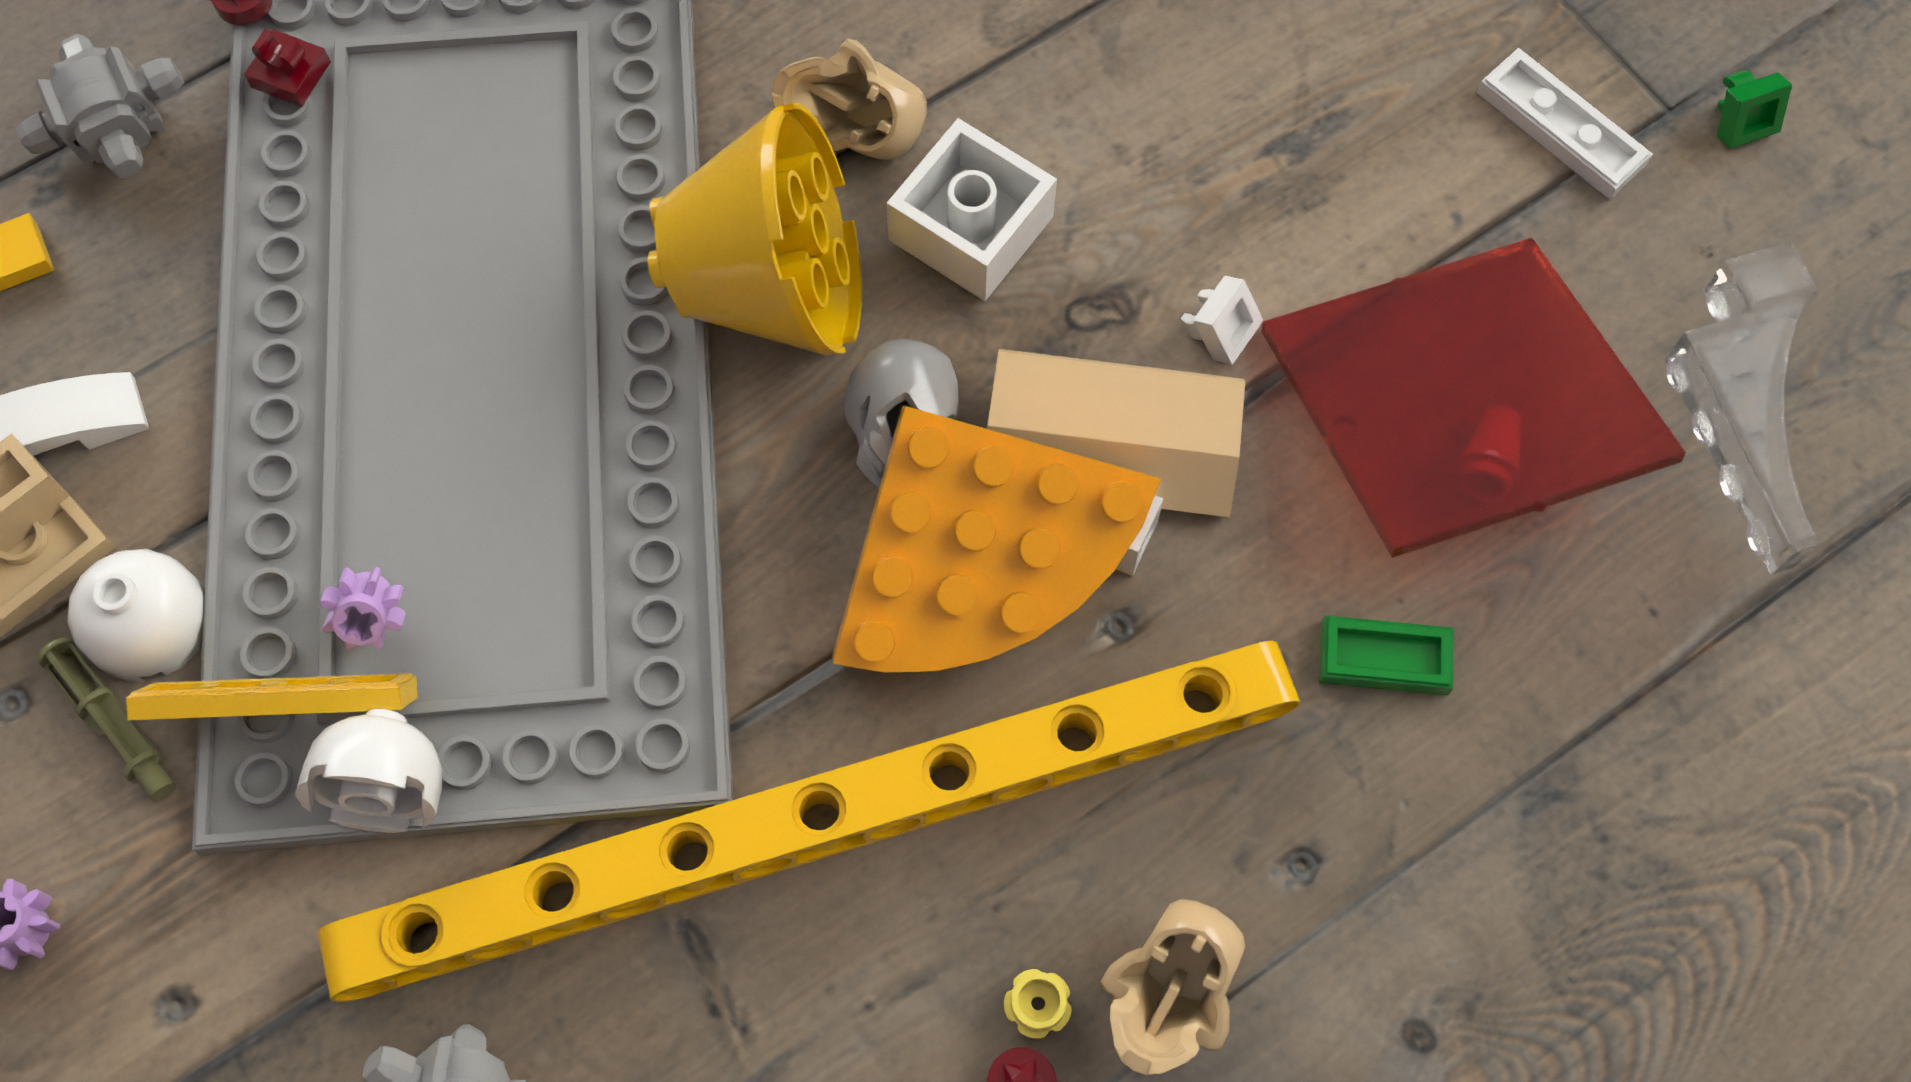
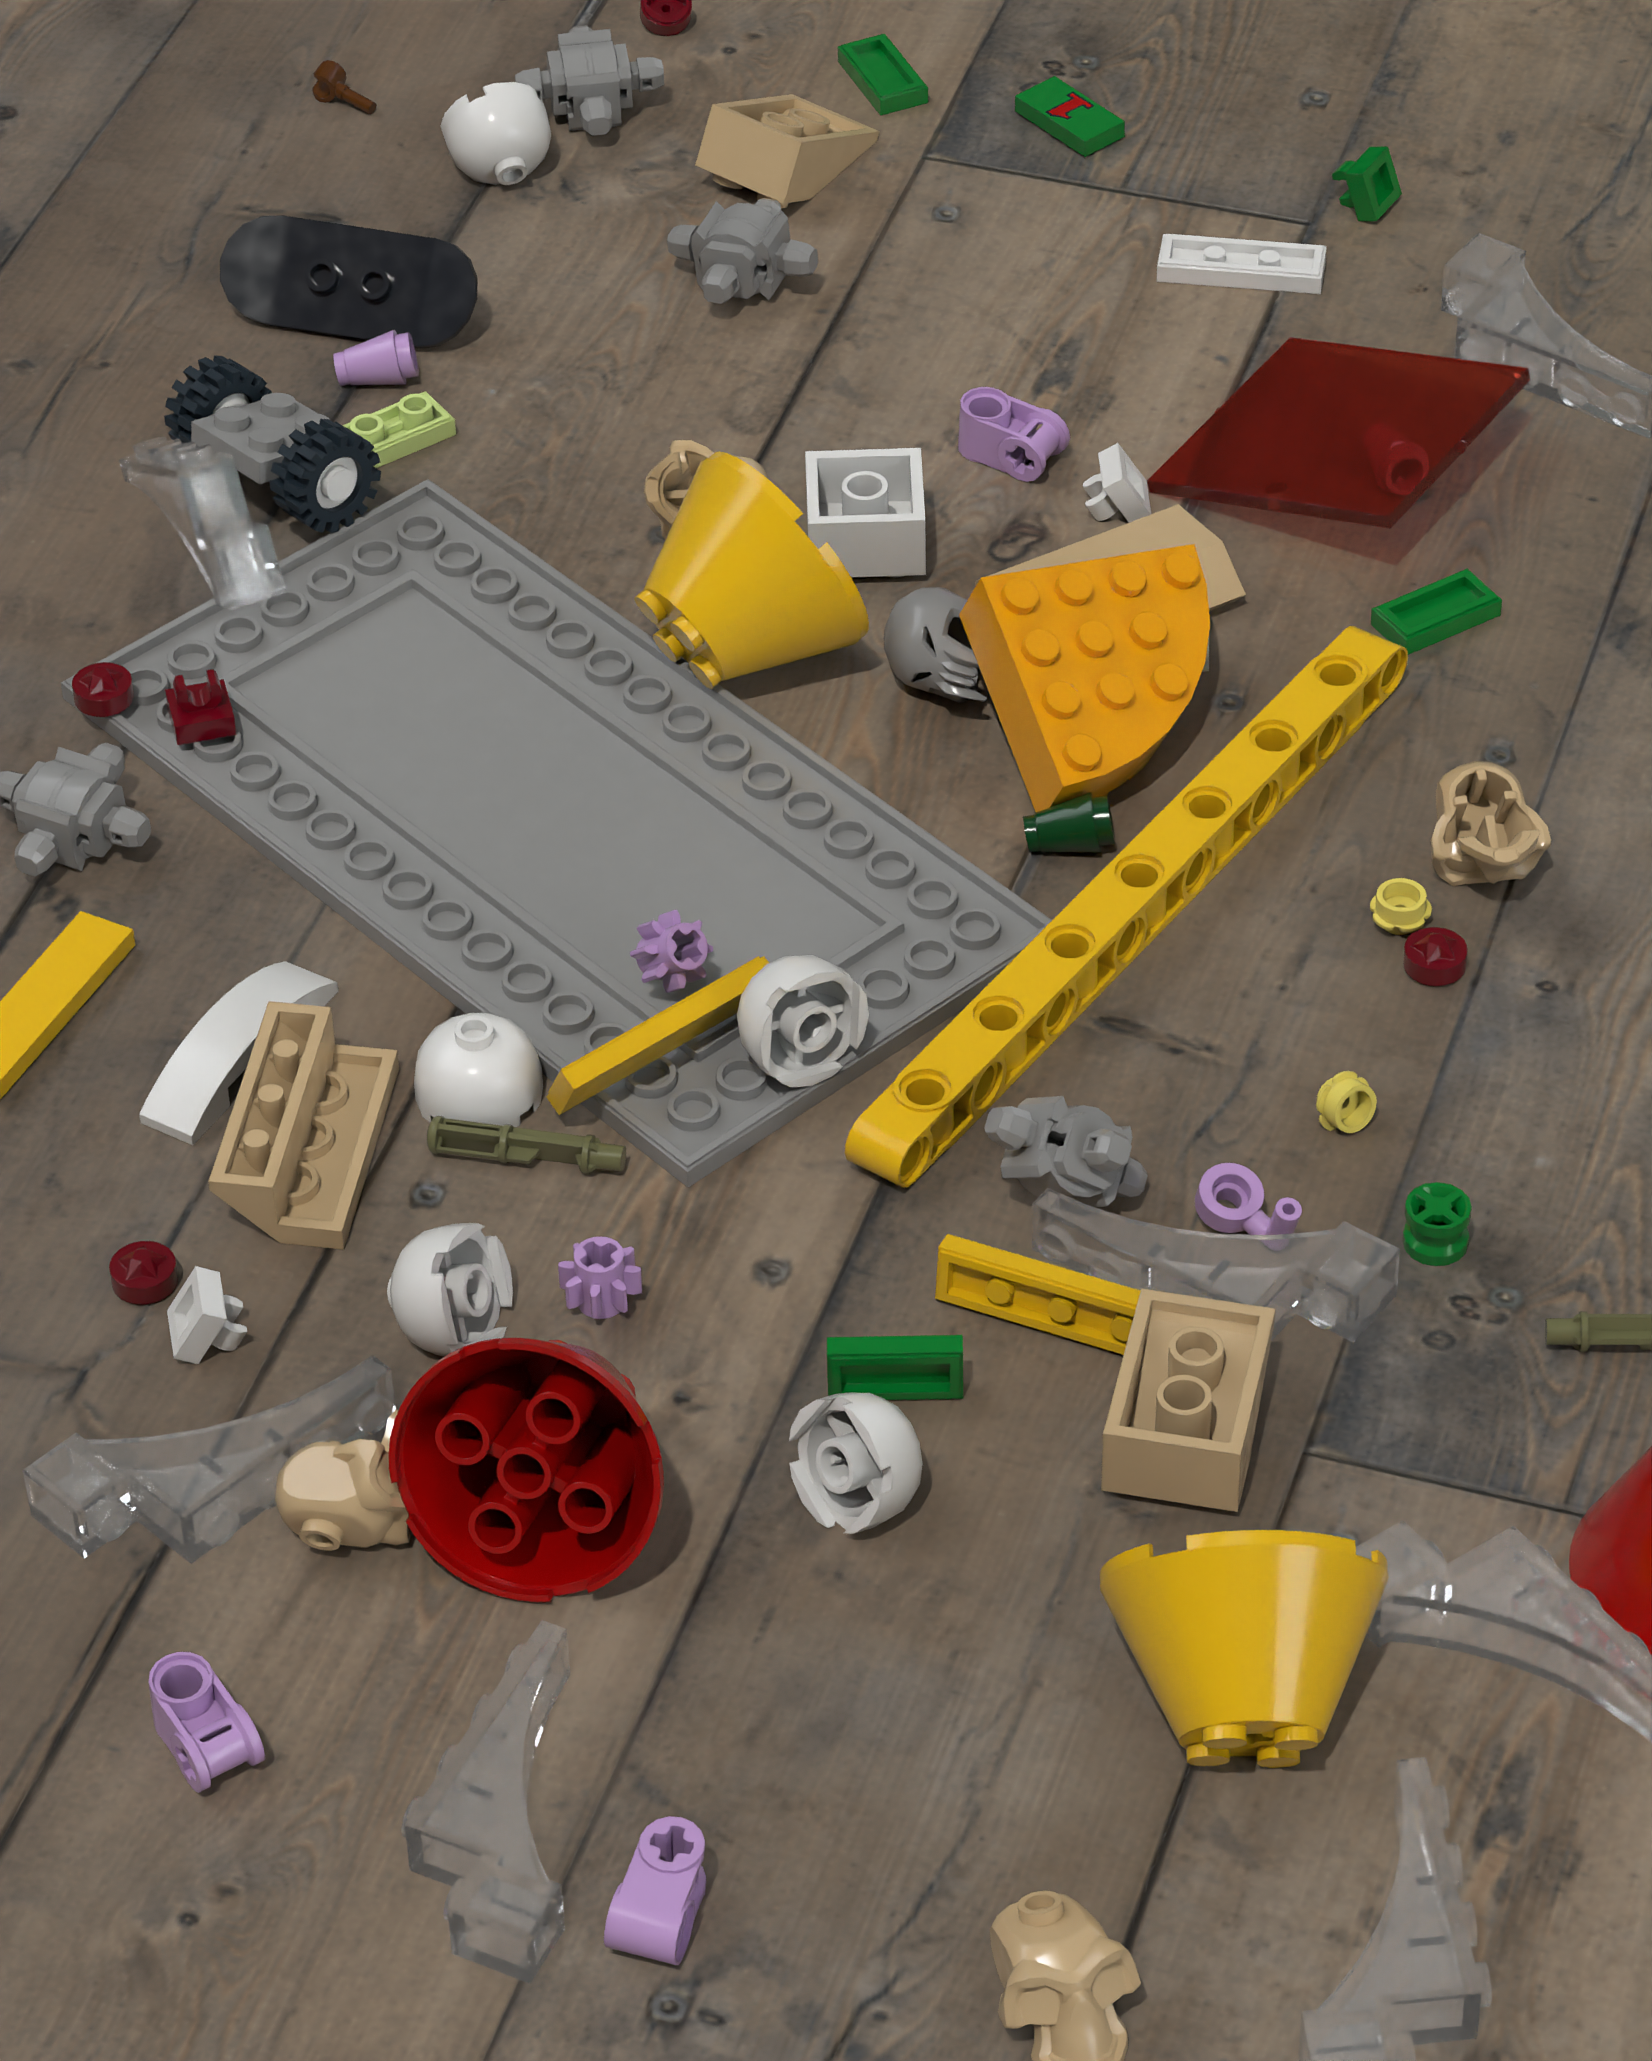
camera: 35 degrees left, 25 degrees down
(843, 693) = (1071, 826): none -> dark green cone
(1184, 203) = (1004, 433): none -> lavender piece

